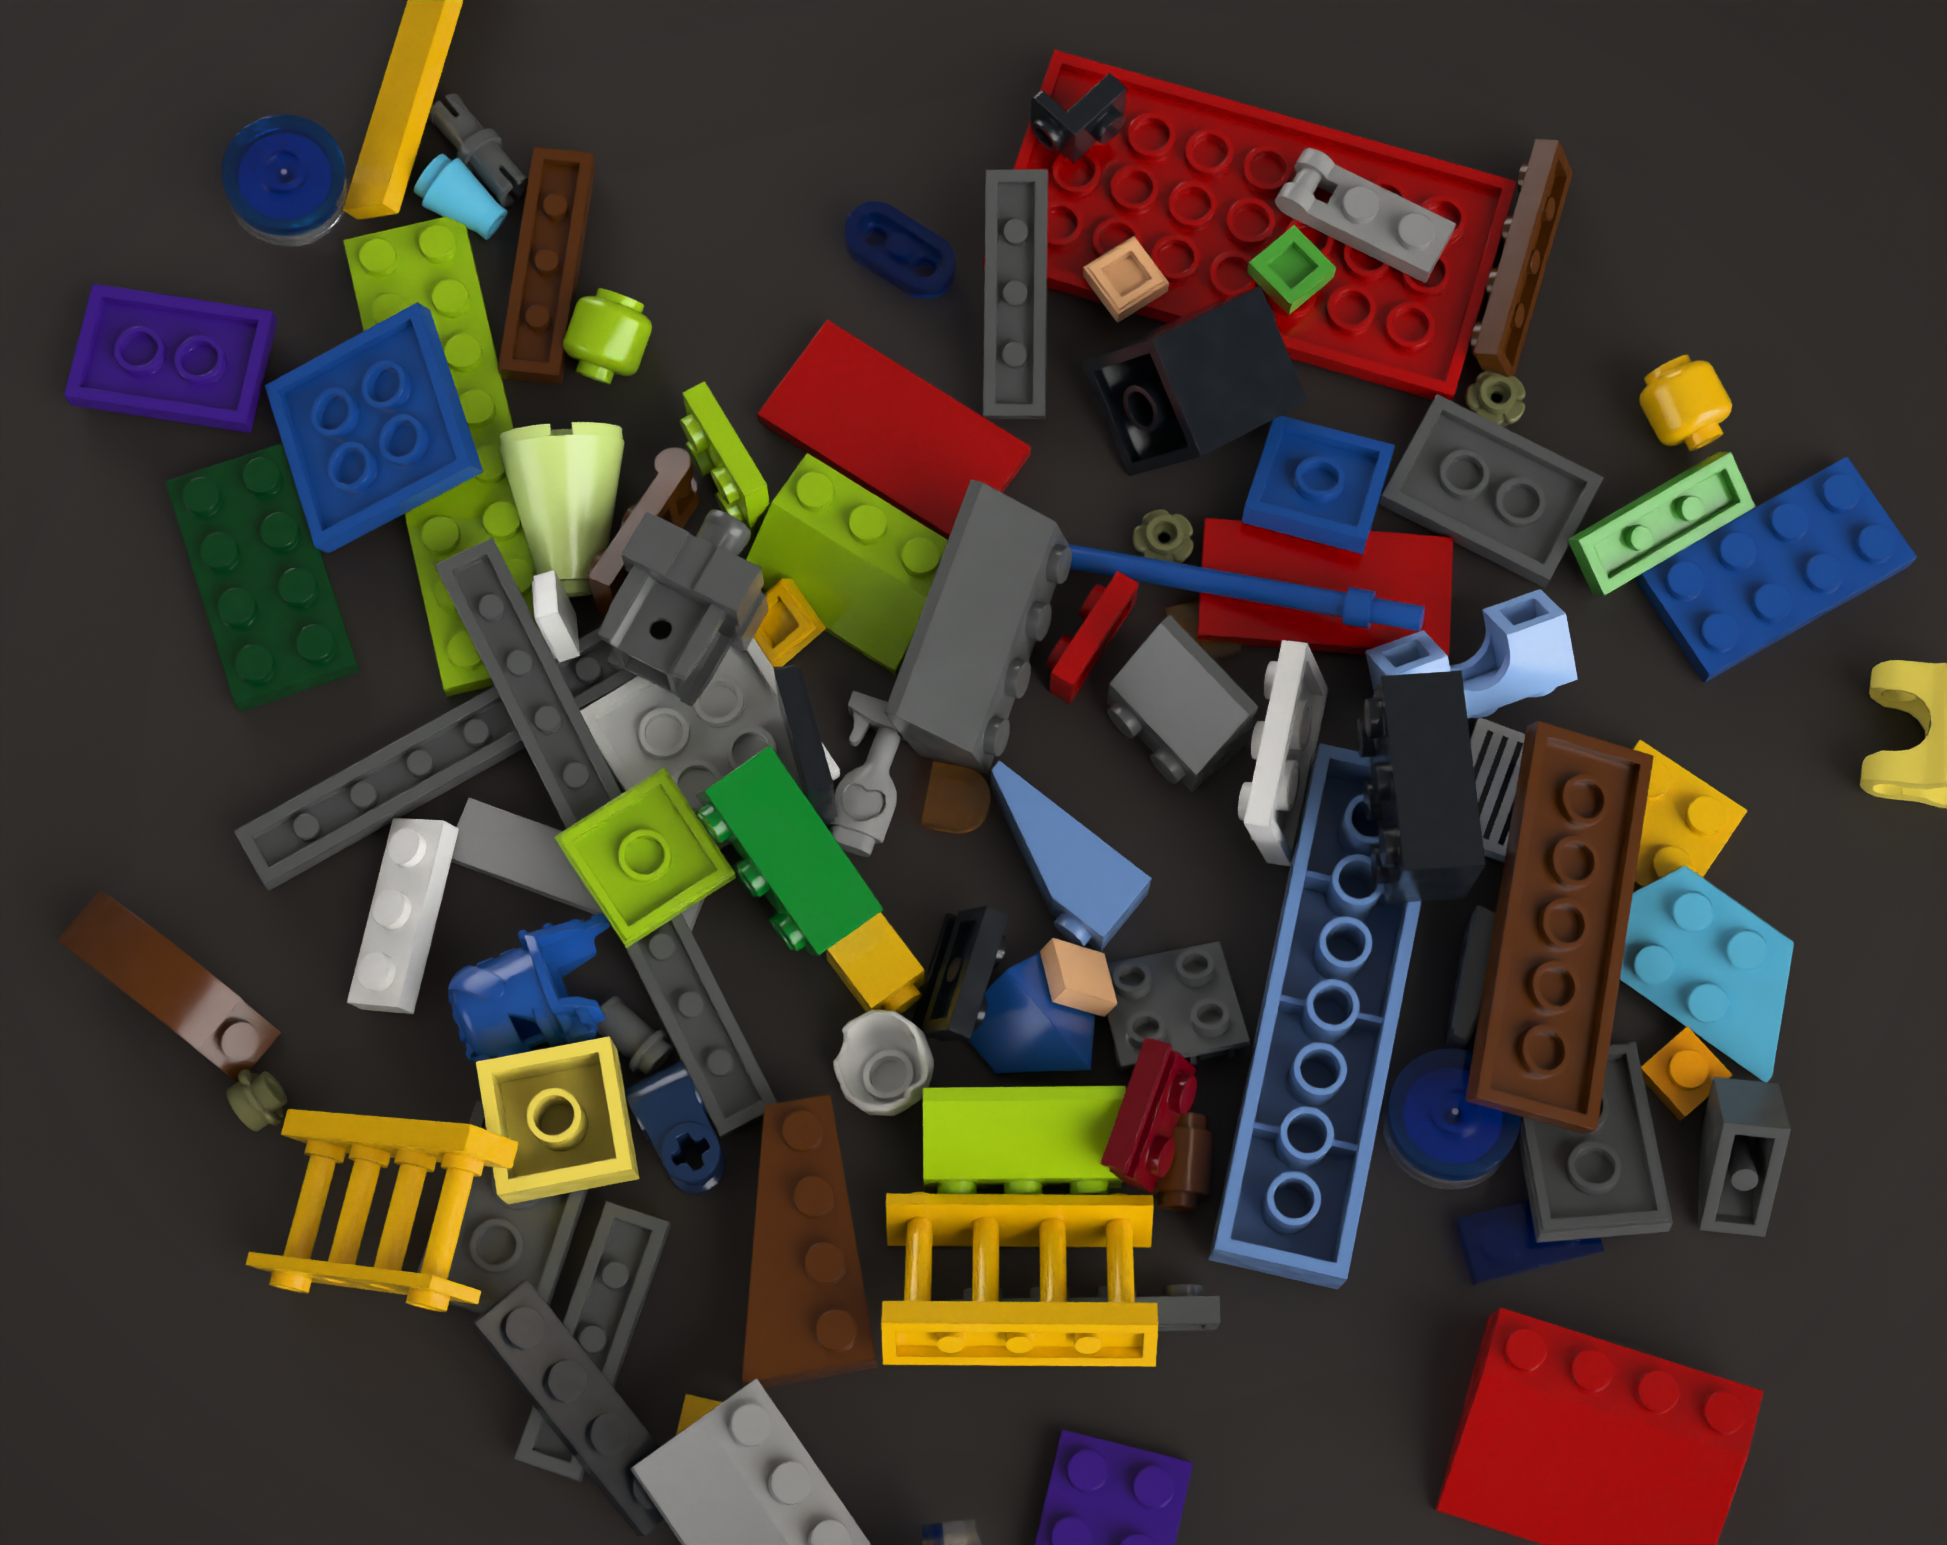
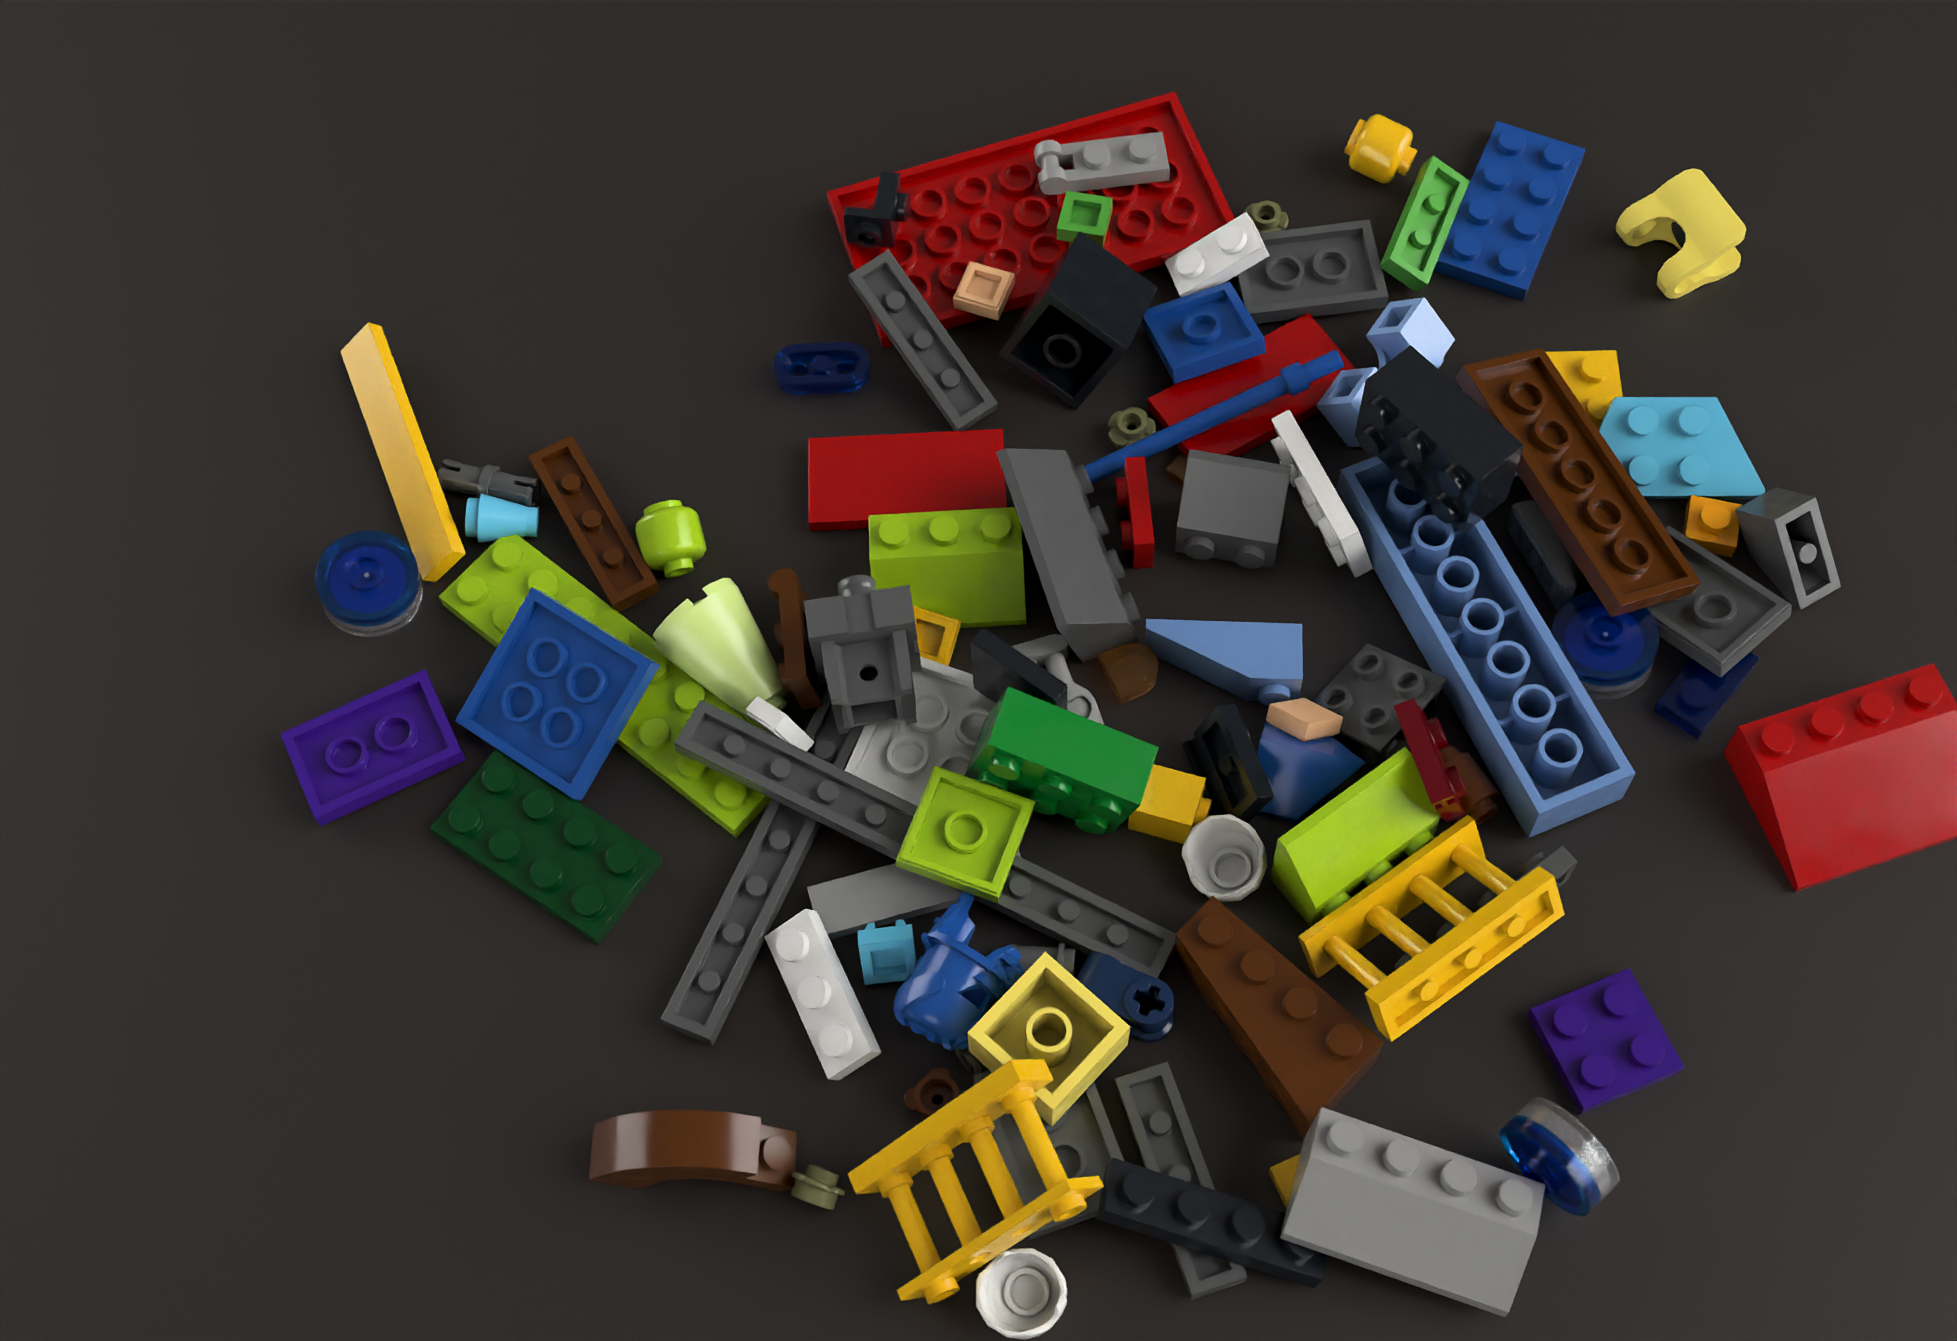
camera: 30 degrees left, 10 degrees down
(358, 1339) = (1021, 1293): none -> white hair
(446, 1082) = (934, 1084): none -> reddish brown plate
(491, 919) = (887, 952): none -> medium azure tile
(719, 450) = (813, 550): lime plate -> none
(1403, 409) = (1217, 256): none -> white plate
(1527, 246) = (1207, 120): reddish brown plate -> none

